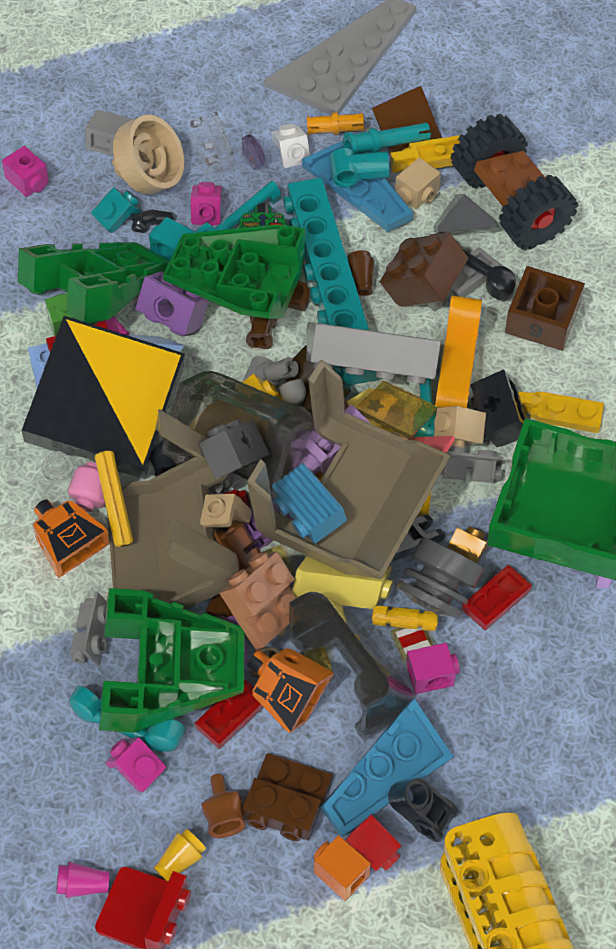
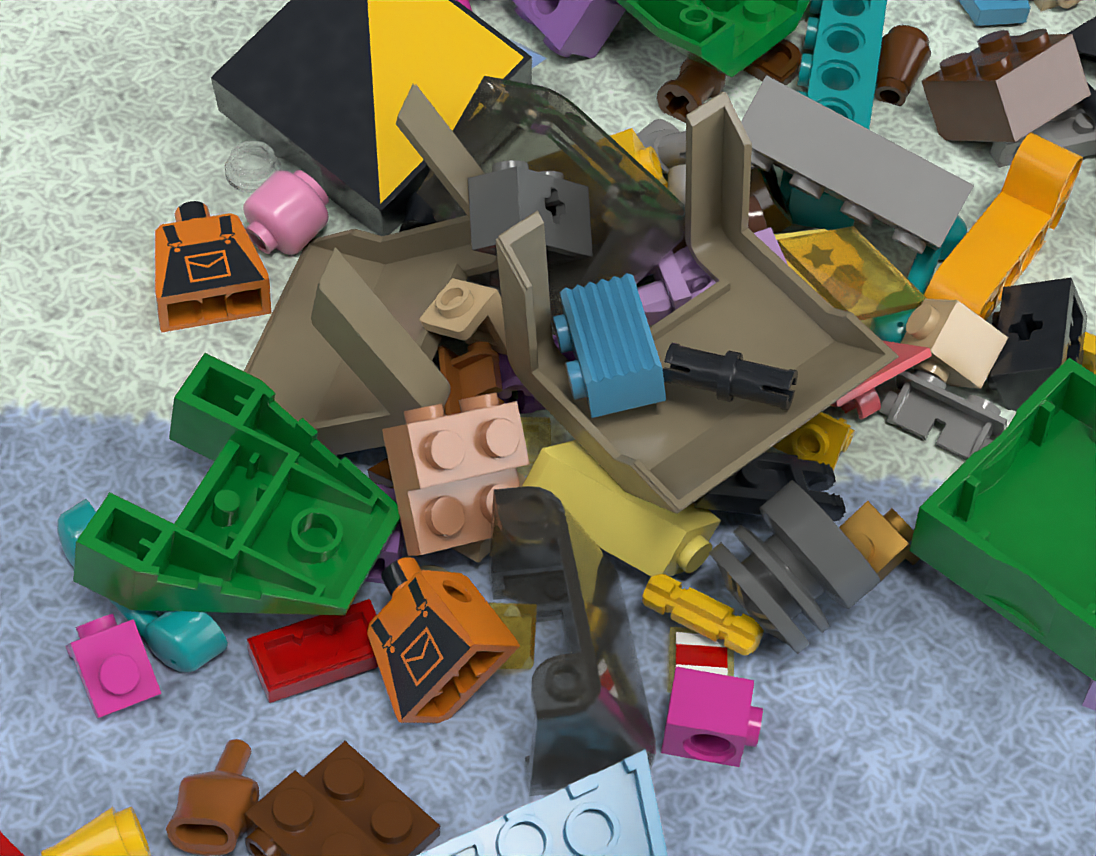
camera: 20 degrees right, 5 degrees down
(92, 642) = (147, 445): light grey hinge -> none
(114, 498) = (307, 238): yellow axle -> none
(374, 497) = (730, 376): none -> black pin
(496, 597) = (888, 647): red plate -> none

